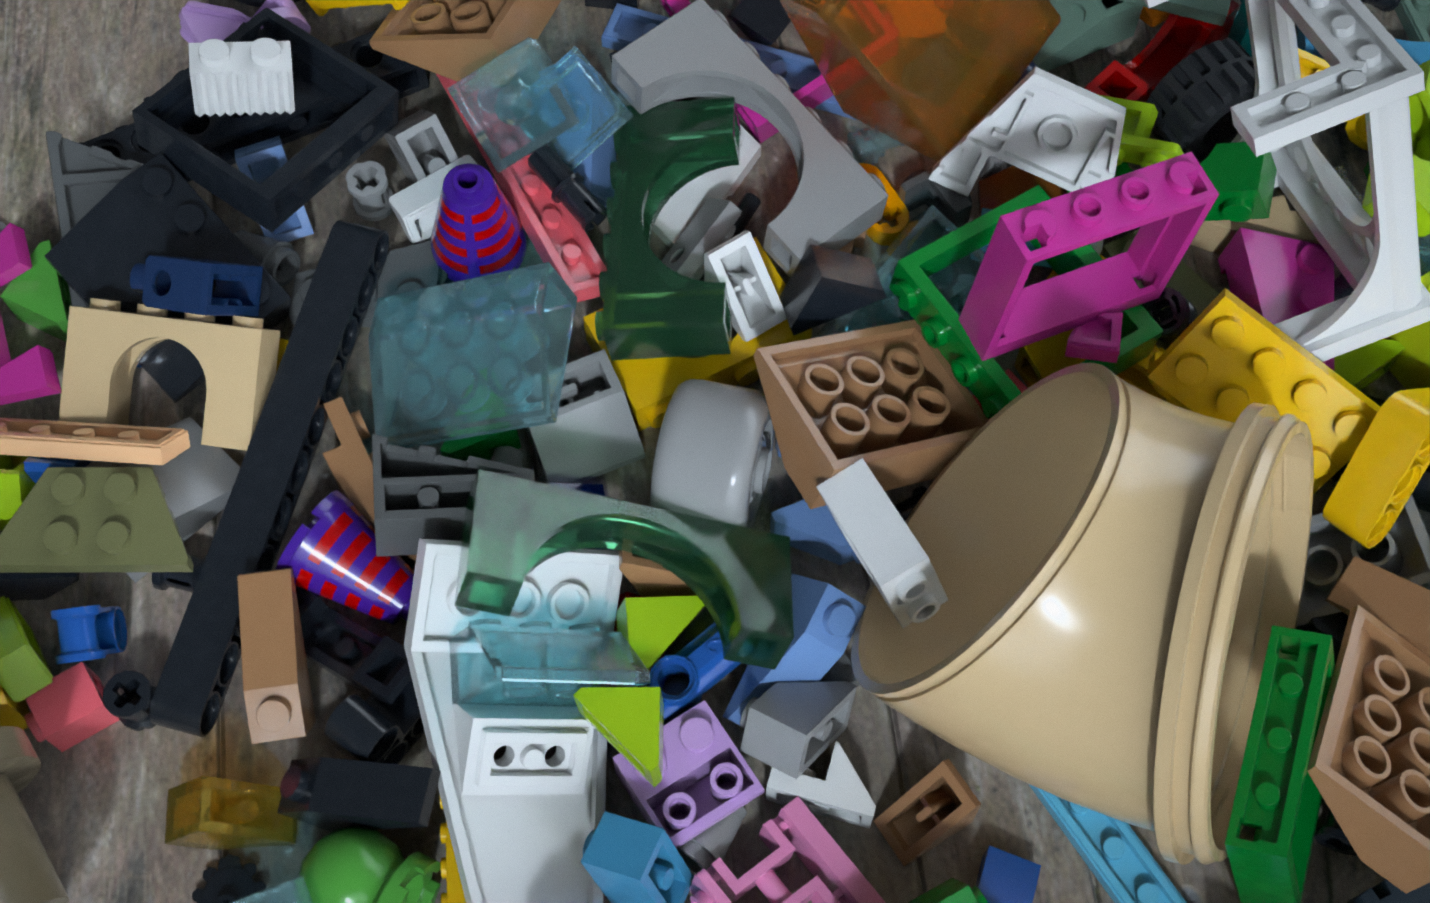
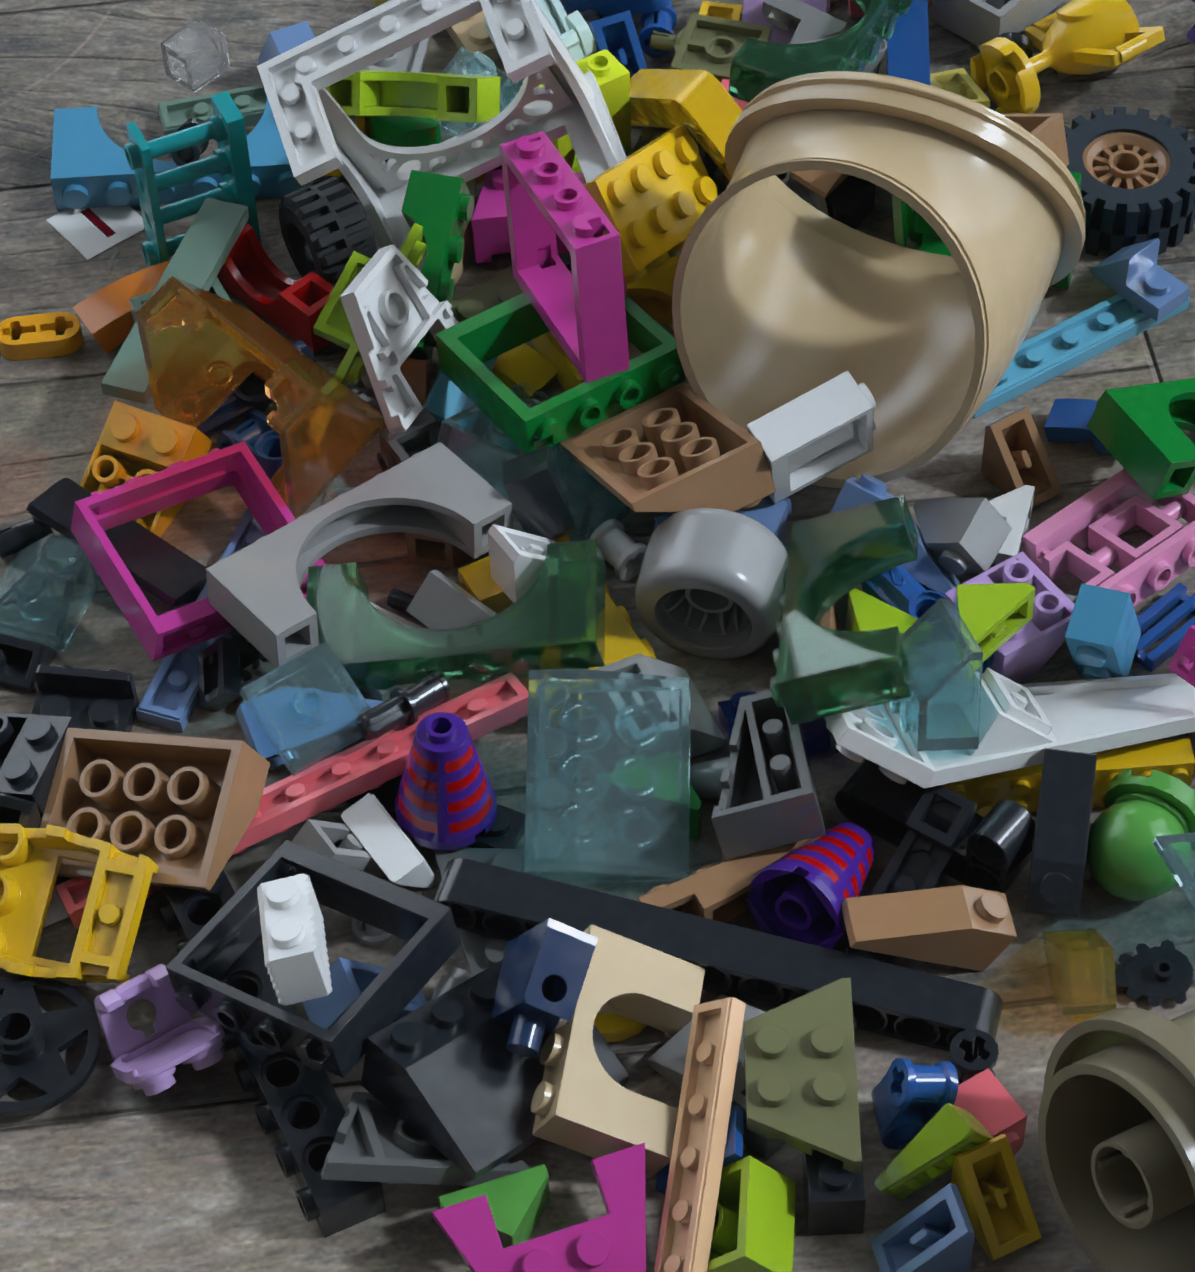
camera: 90 degrees left, 15 degrees down
(515, 103) = (315, 729): clear light blue slope -> none

